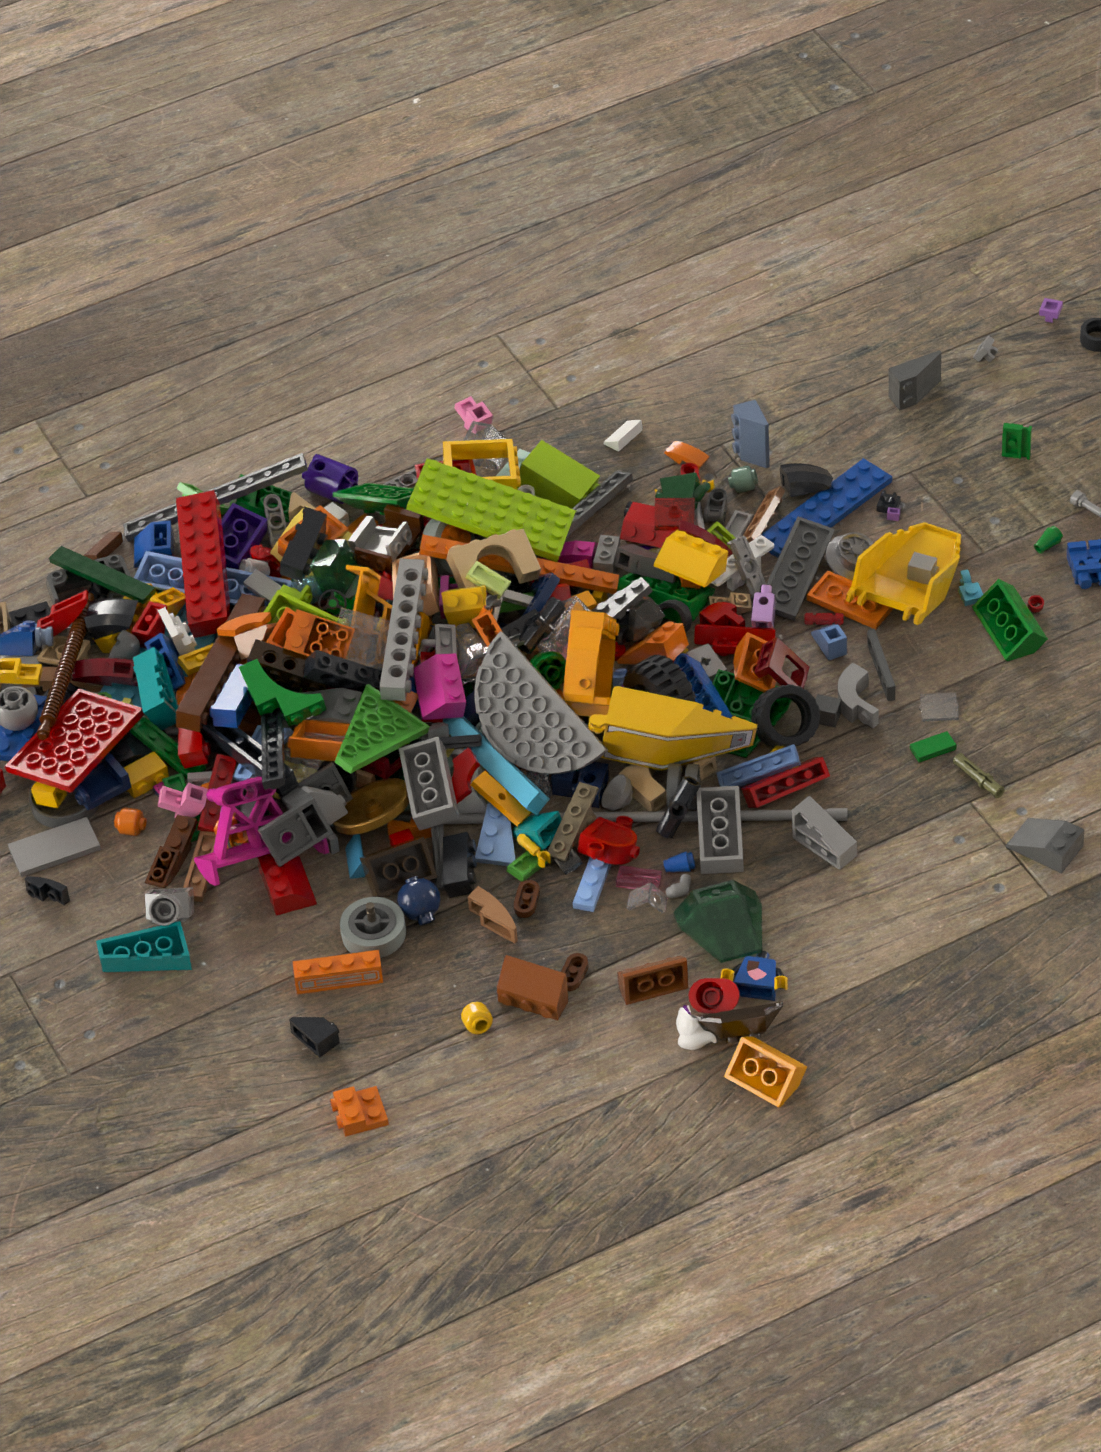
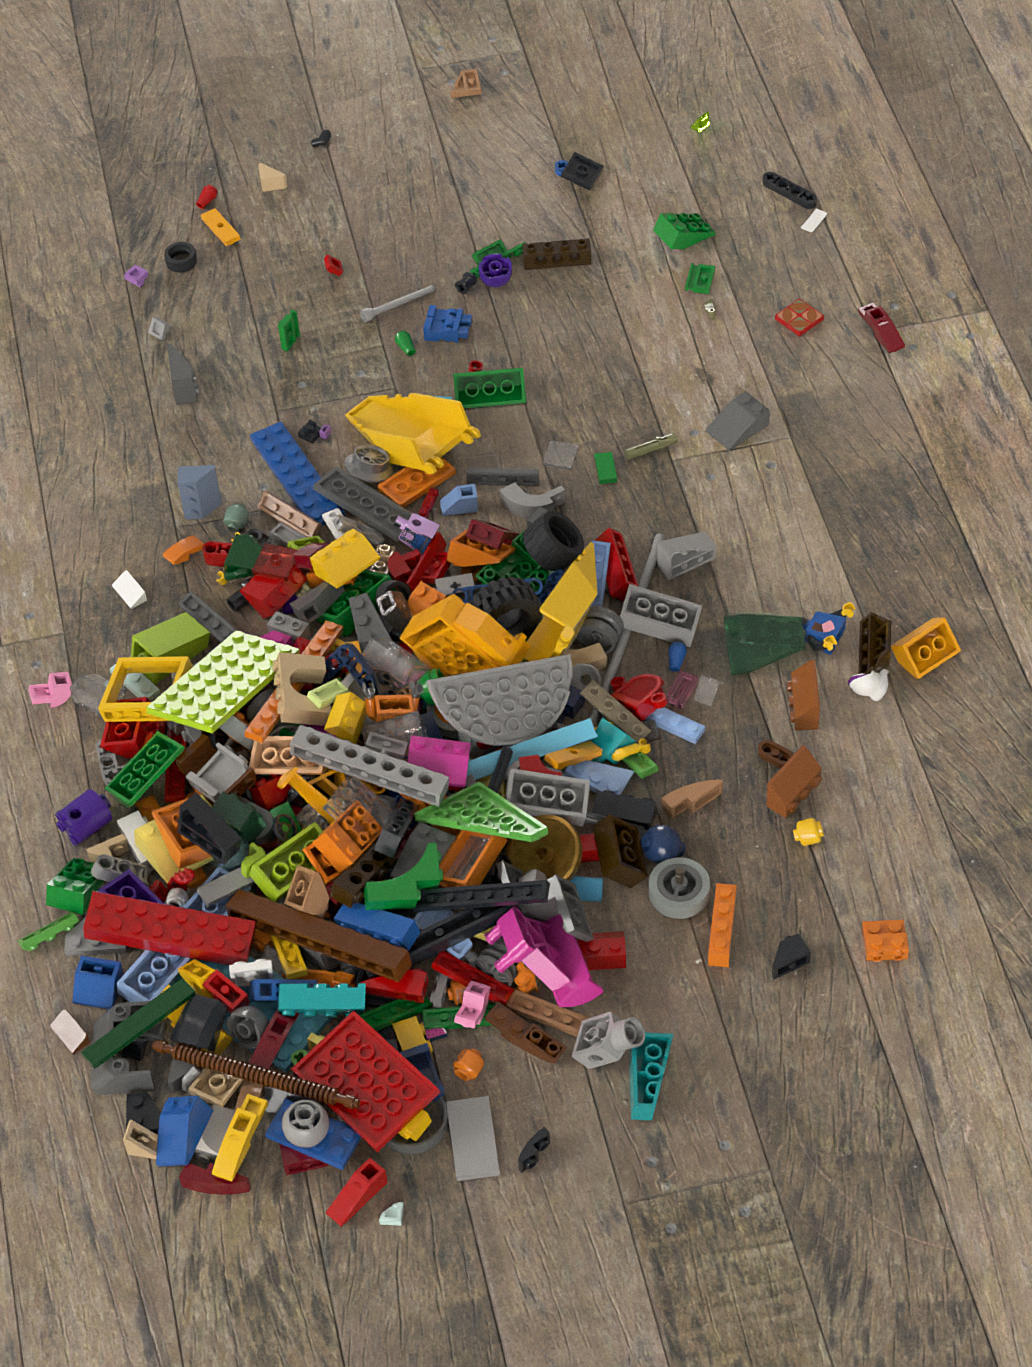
camera: 75 degrees left, 5 degrees up
(44, 636) = (200, 1088): sand blue wheel -> none
(64, 613) = (181, 1064): red slope -> none
(227, 492) = (71, 911): dark grey plate -> none
(244, 623) = (282, 903): orange tile -> none
(526, 903) = (679, 771): reddish brown plate -> none
(541, 624) = (389, 663): black piece -> none
(679, 889) = (702, 661): light grey arm -> none
(683, 796) = (628, 635): black piece -> none
(713, 995) = (842, 659): red piece -> none
(804, 478) = (261, 476): black slope -> none
(922, 568) = (406, 423): light grey brick -> none

